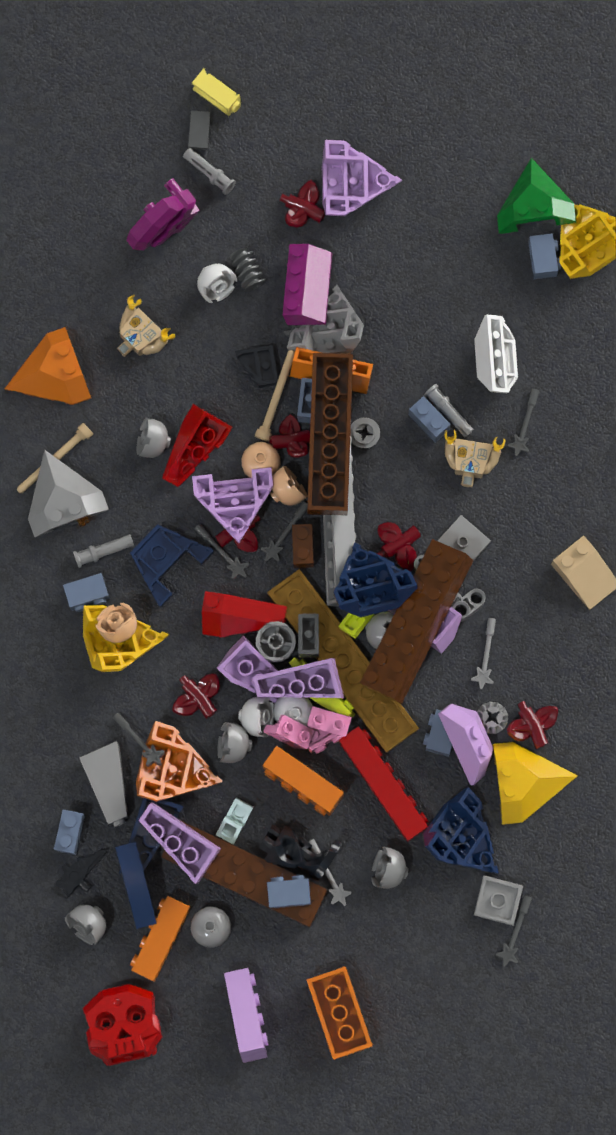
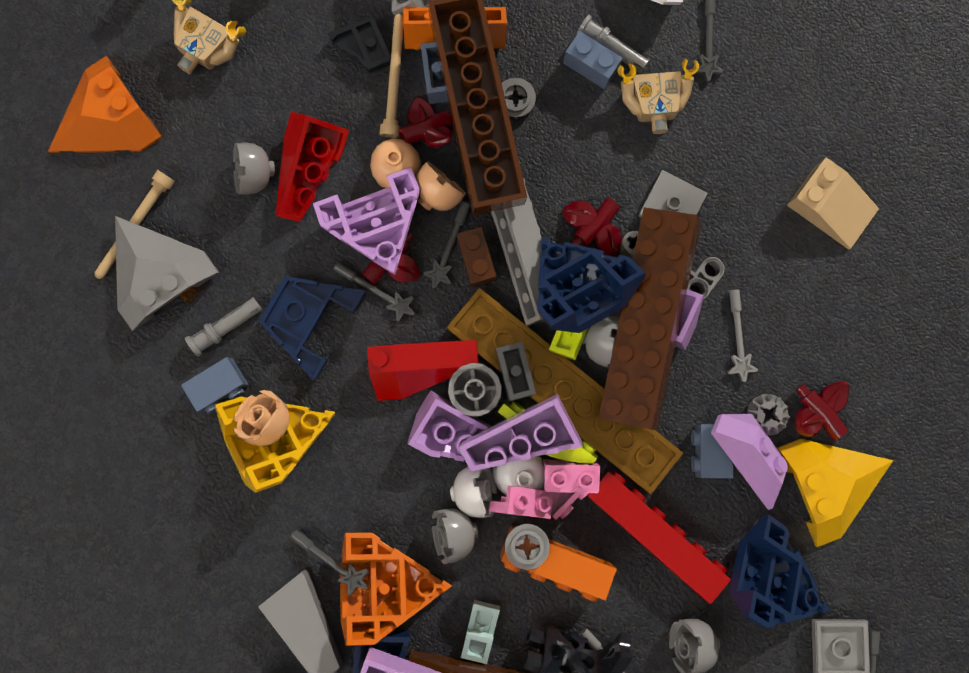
camera: 25 degrees left, 5 degrees up
(197, 696) = (391, 483): dark red plant -> none
(291, 753) = (537, 555): none -> light grey gear

